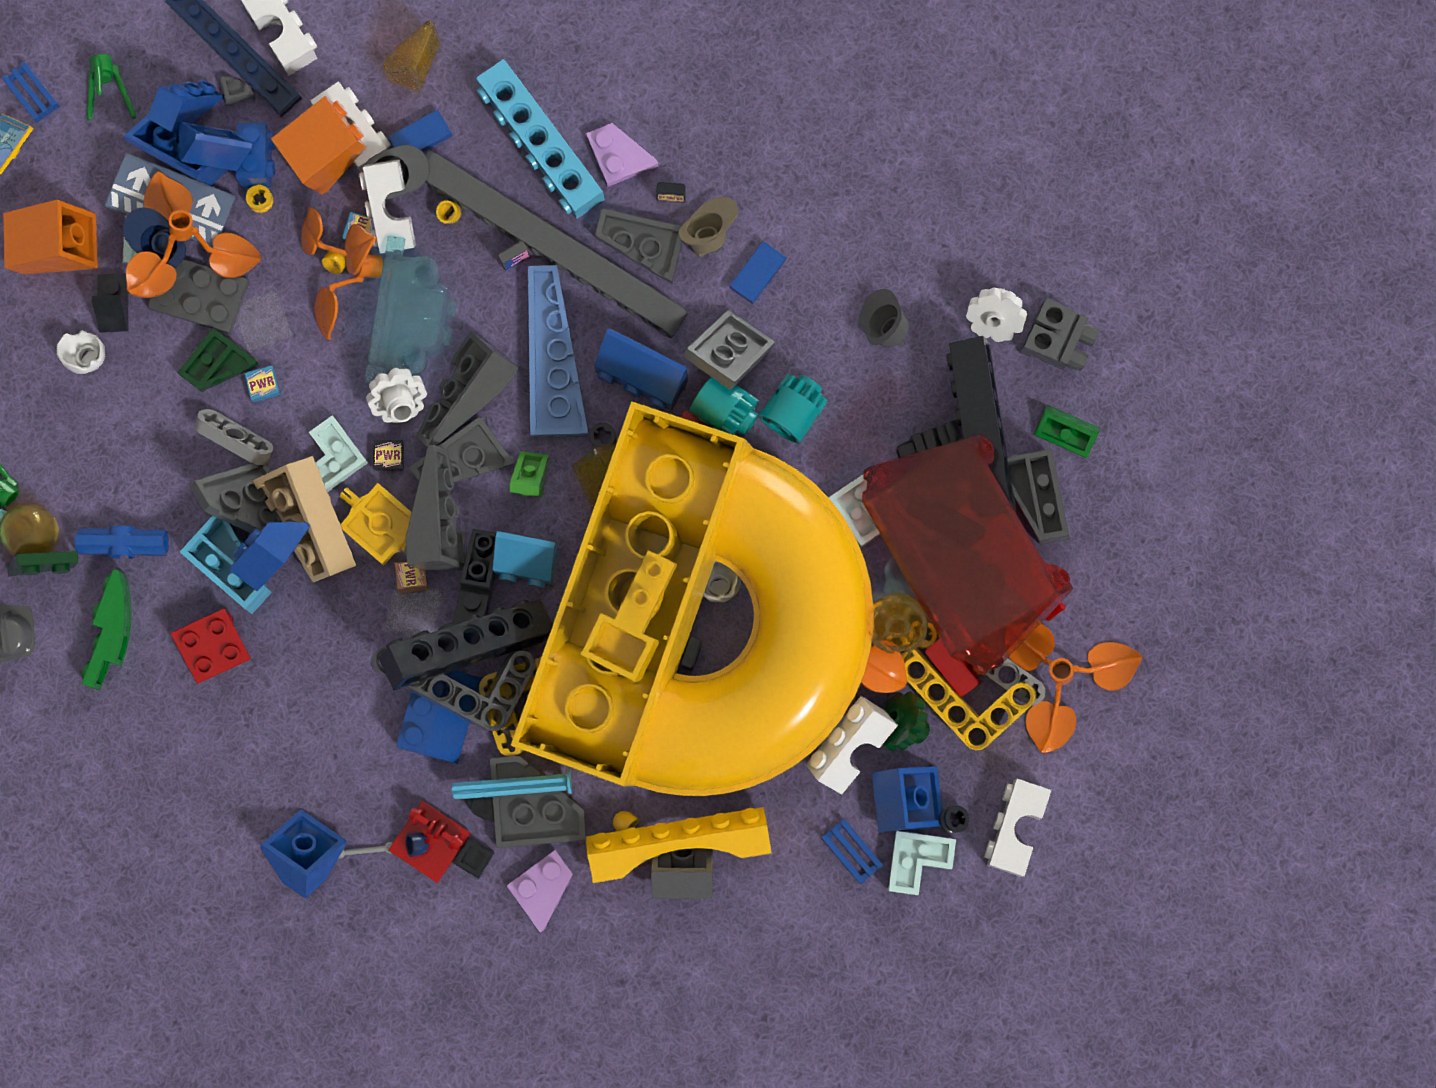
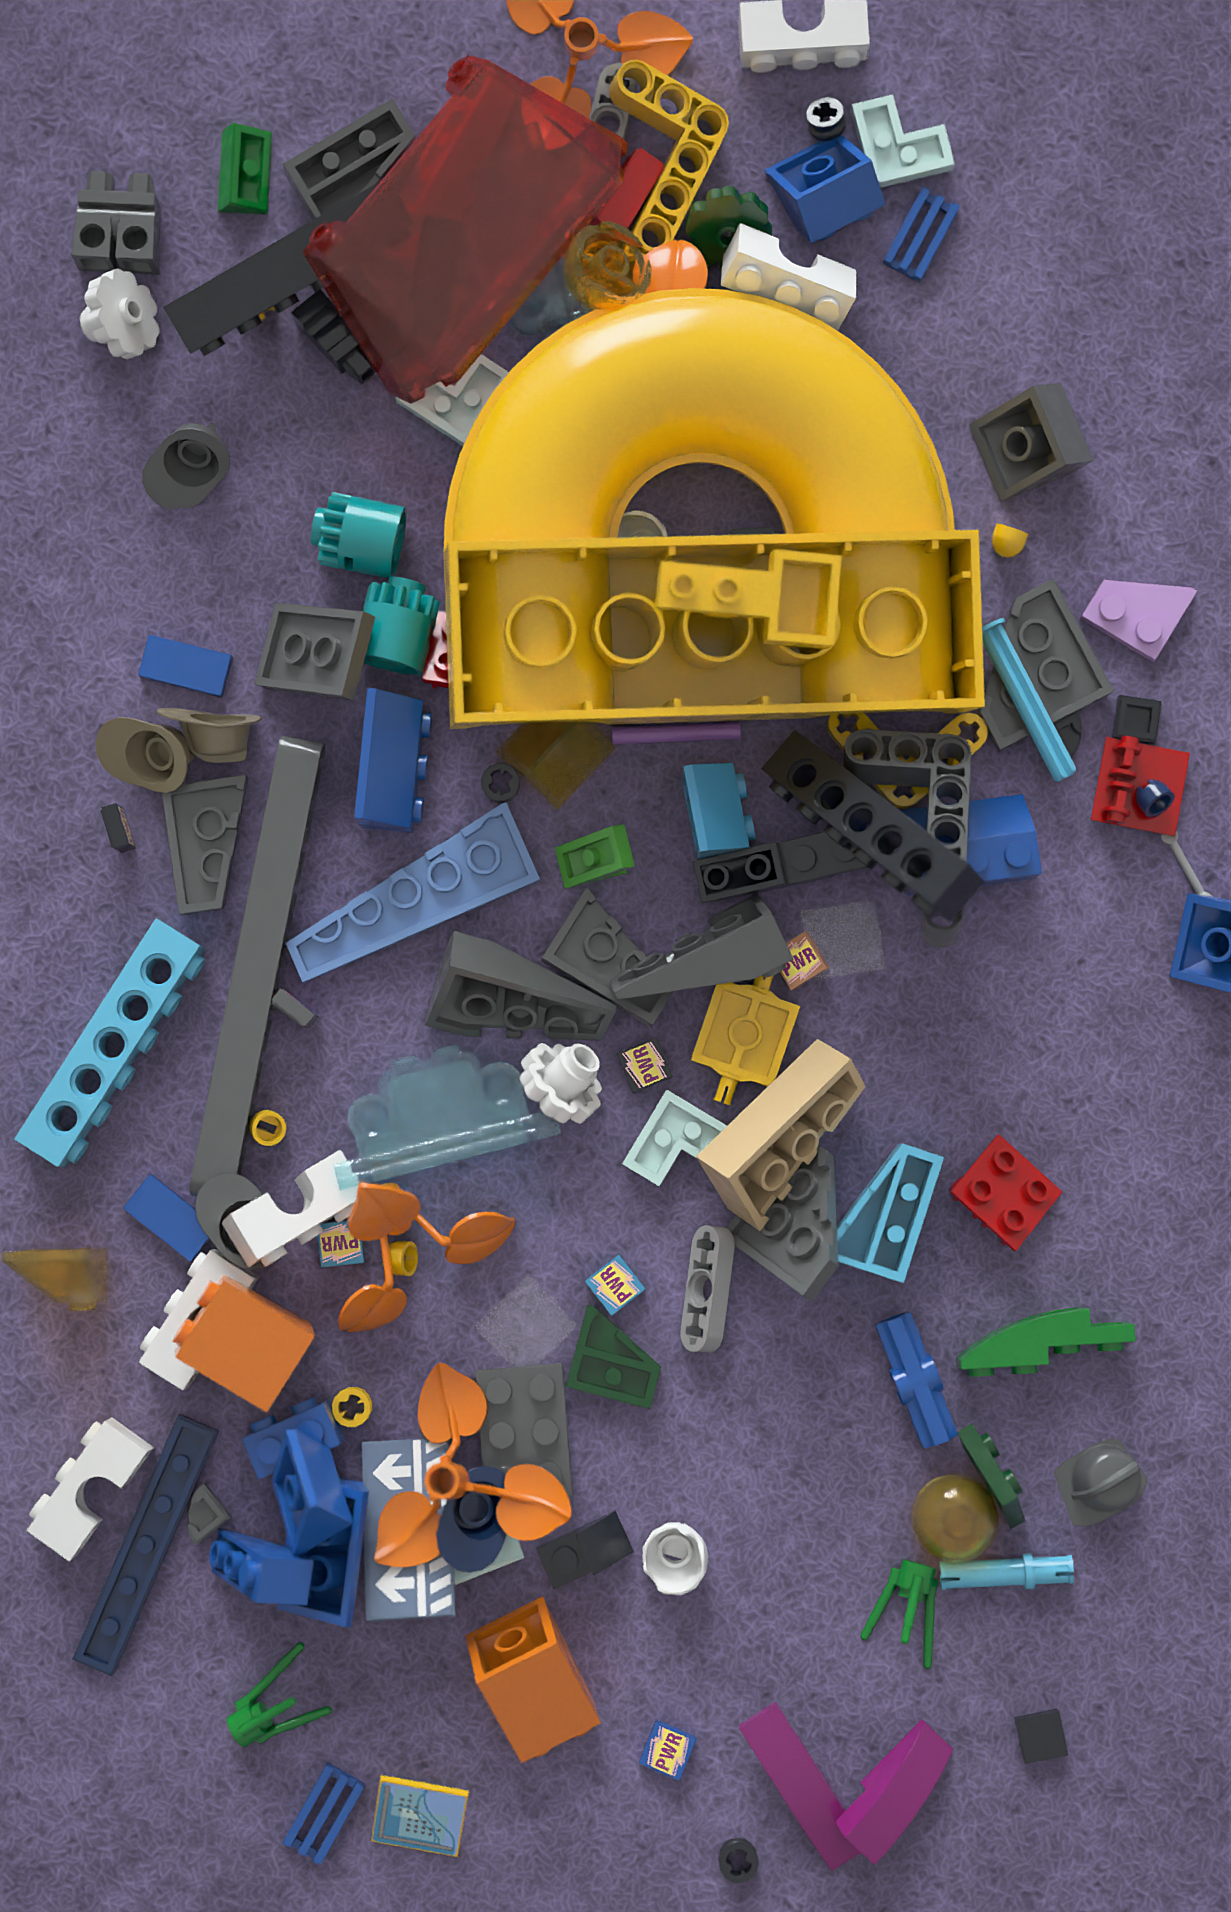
camera: 115 degrees left, 5 degrees up
(266, 551) = (860, 1150): blue slope -> none
(618, 154) = (89, 927): lavender wing -> none
(619, 852) = (967, 391): yellow arch -> none
(708, 269) = (214, 736): none -> dark tan piece

